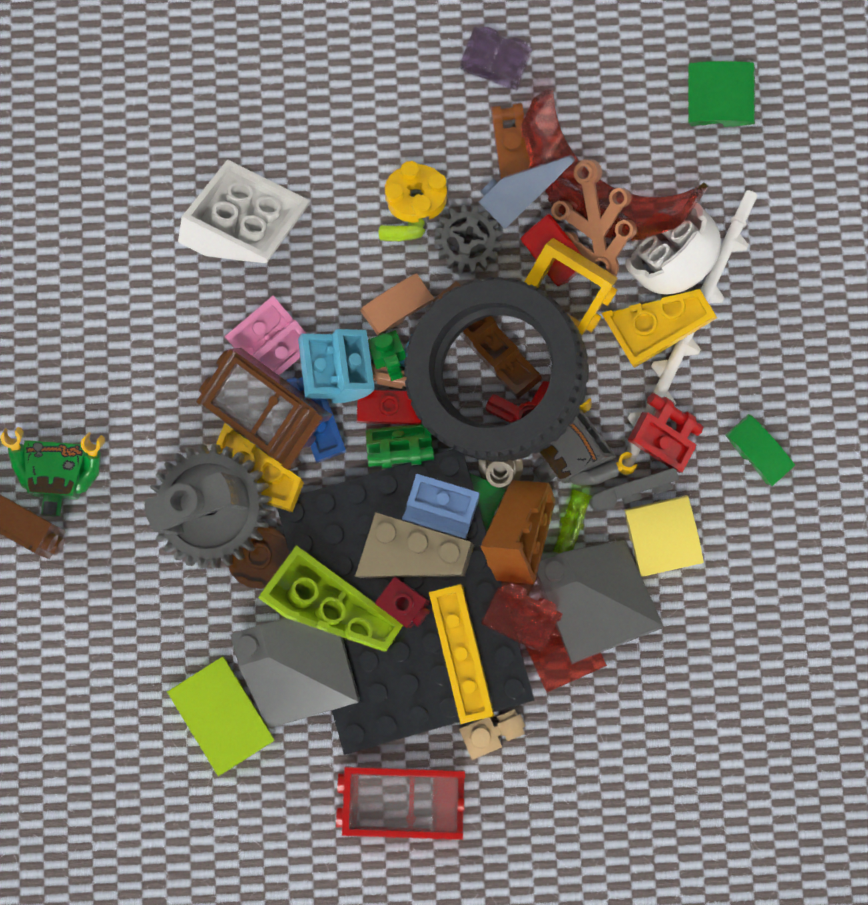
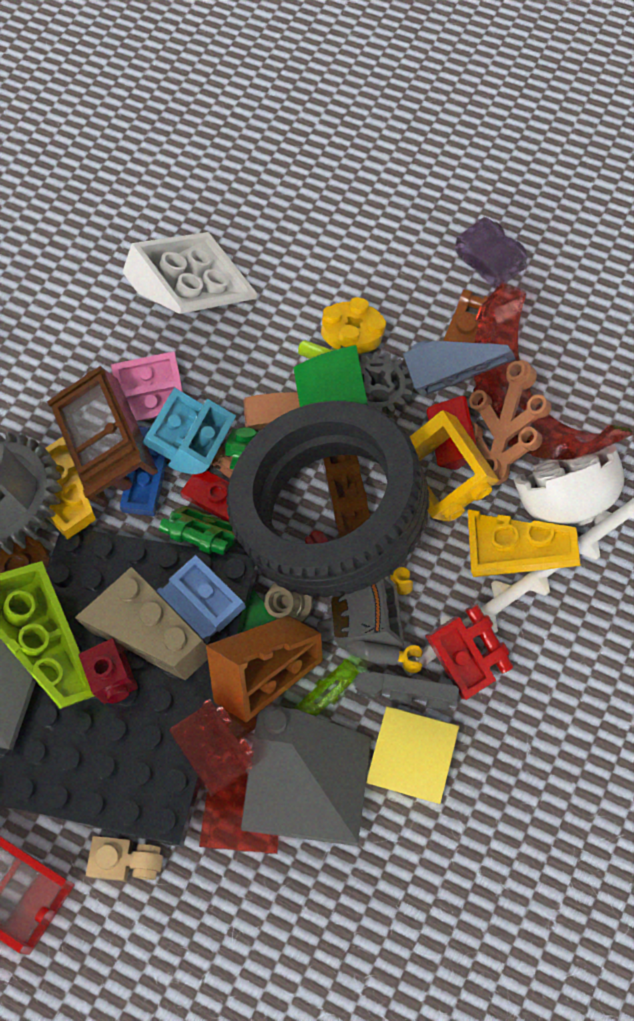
camera: 35 degrees right, 15 degrees down
(432, 262) = (331, 378): none -> green slope
(461, 654) = (131, 754): yellow plate -> none
(760, 449) = (561, 720): green slope -> none

